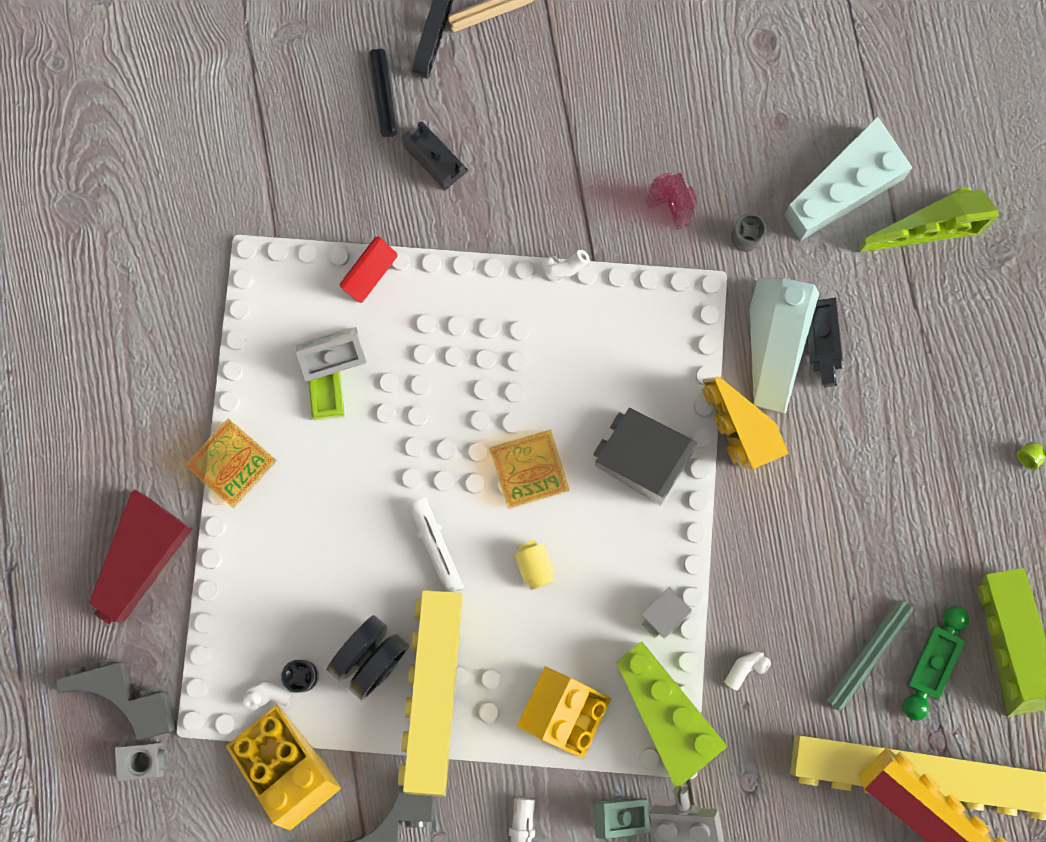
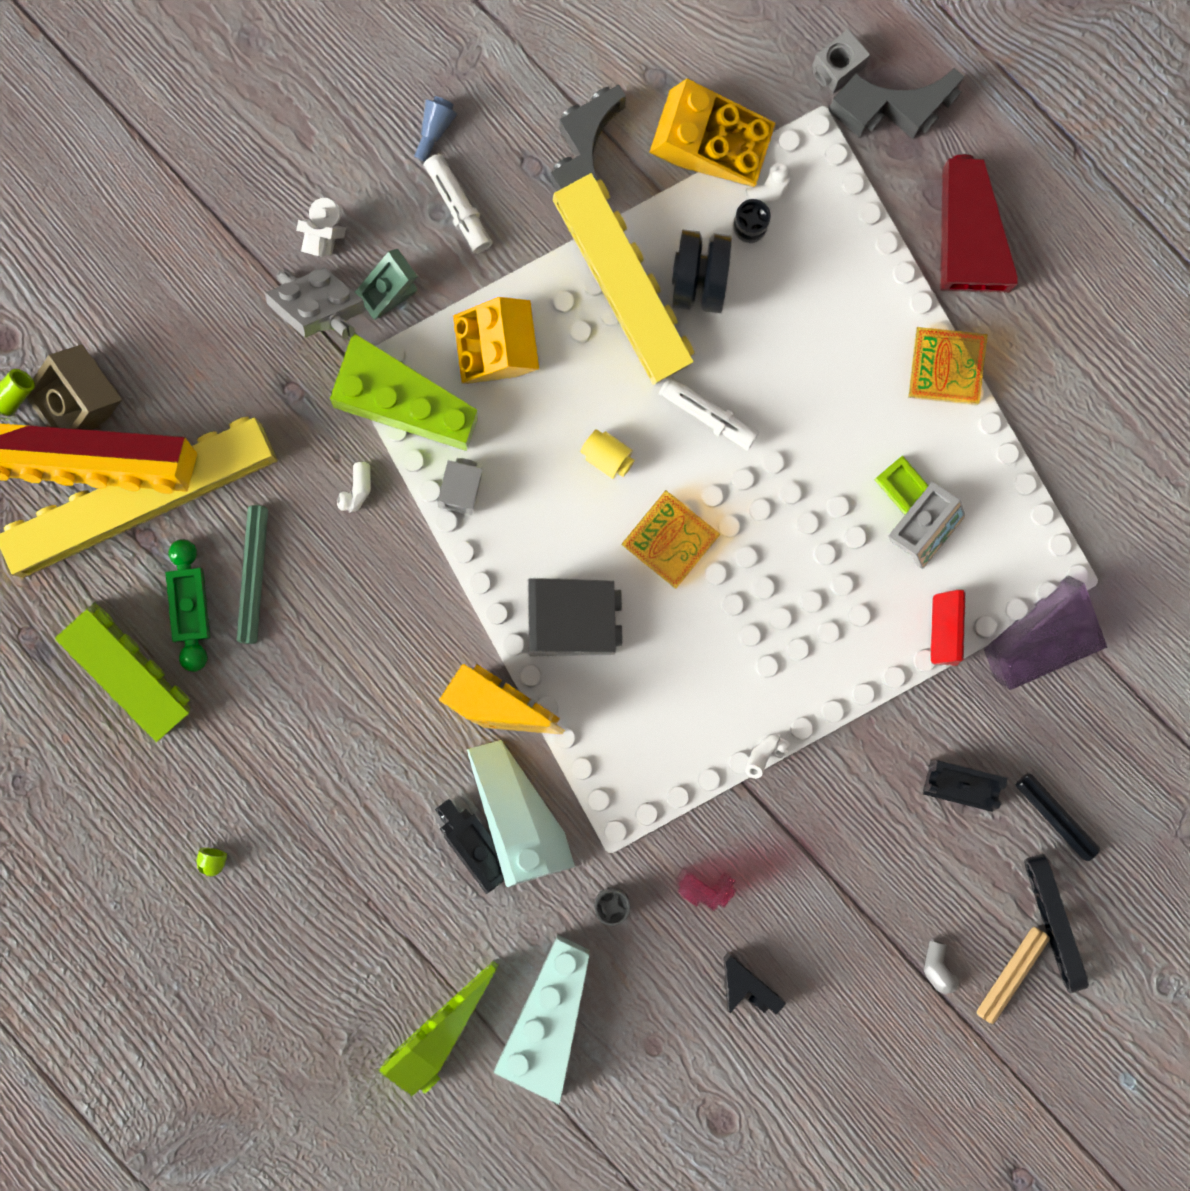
camera: 145 degrees right, 5 degrees up
(302, 215) = (1048, 637): none -> clear purple wedge
(543, 44) = (937, 972): none -> light grey arm
(686, 120) = (741, 981): none -> black slope

